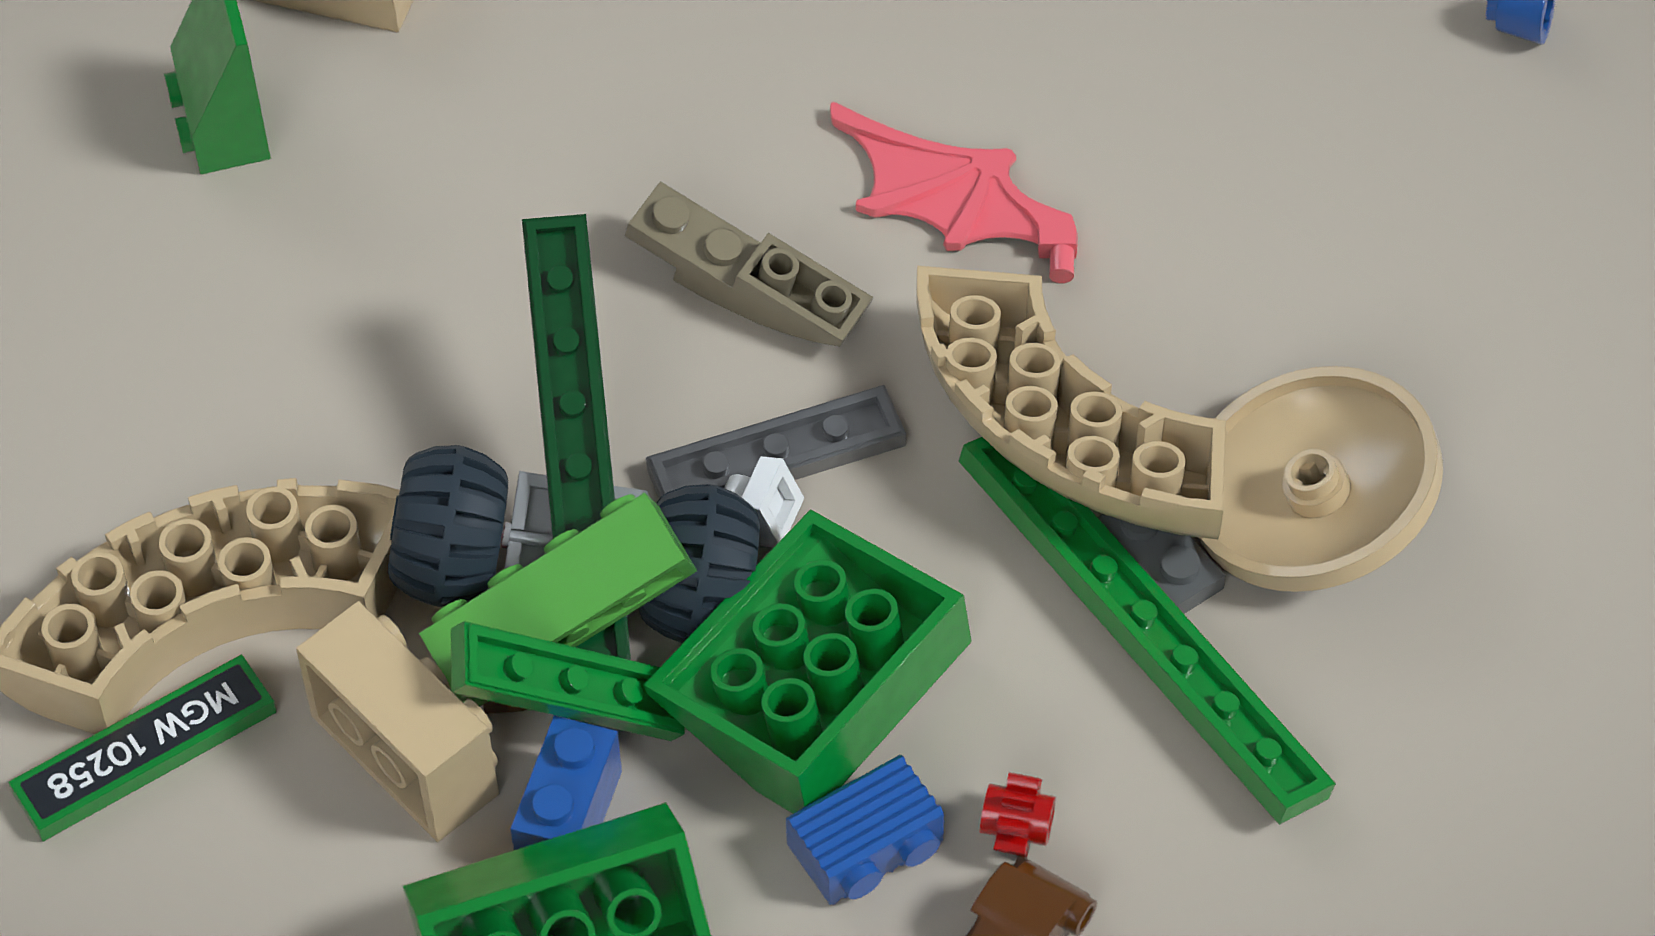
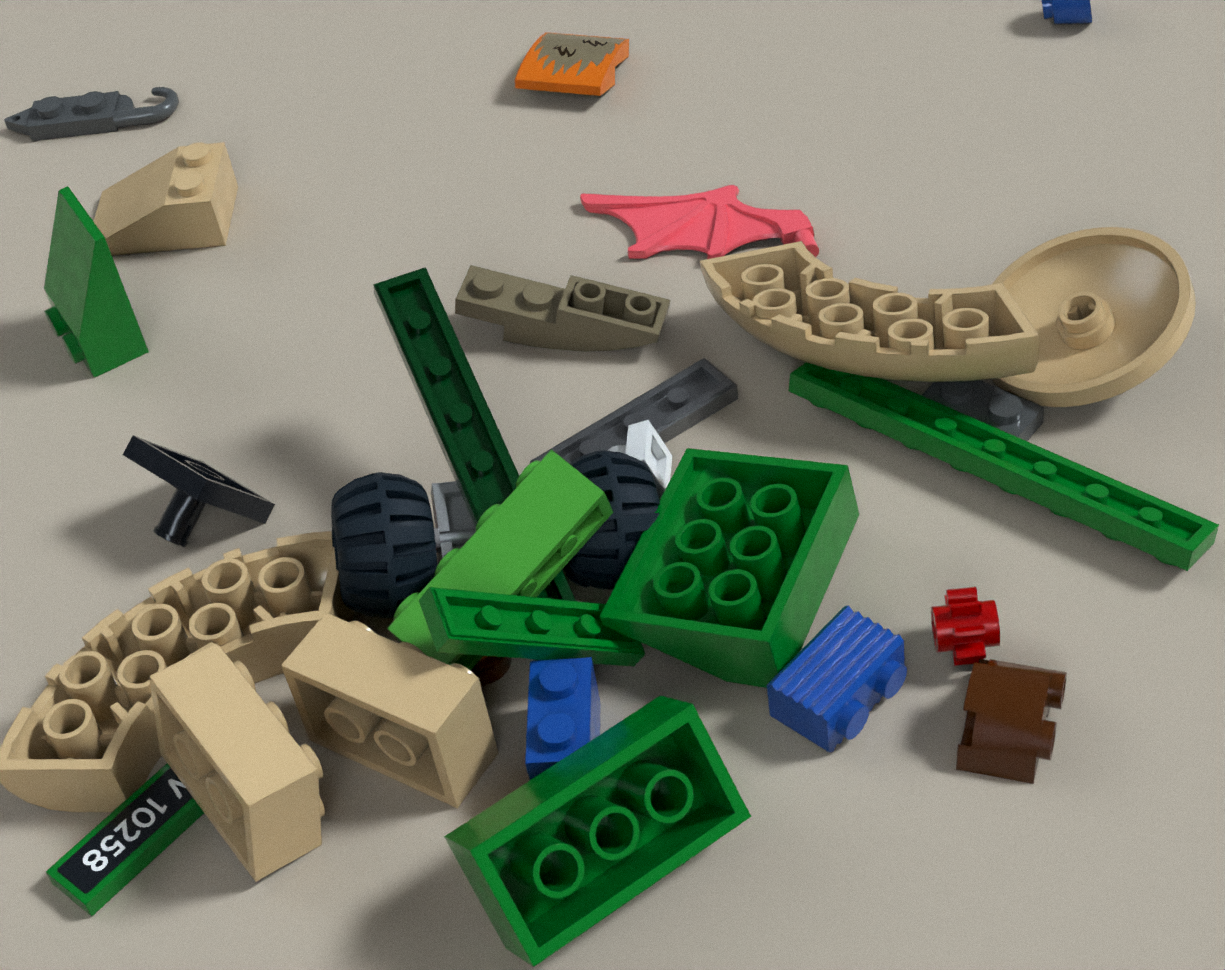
camera: 10 degrees left, 10 degrees down
(228, 730) = (238, 760): none -> tan brick
(274, 377) = (195, 487): none -> black tile

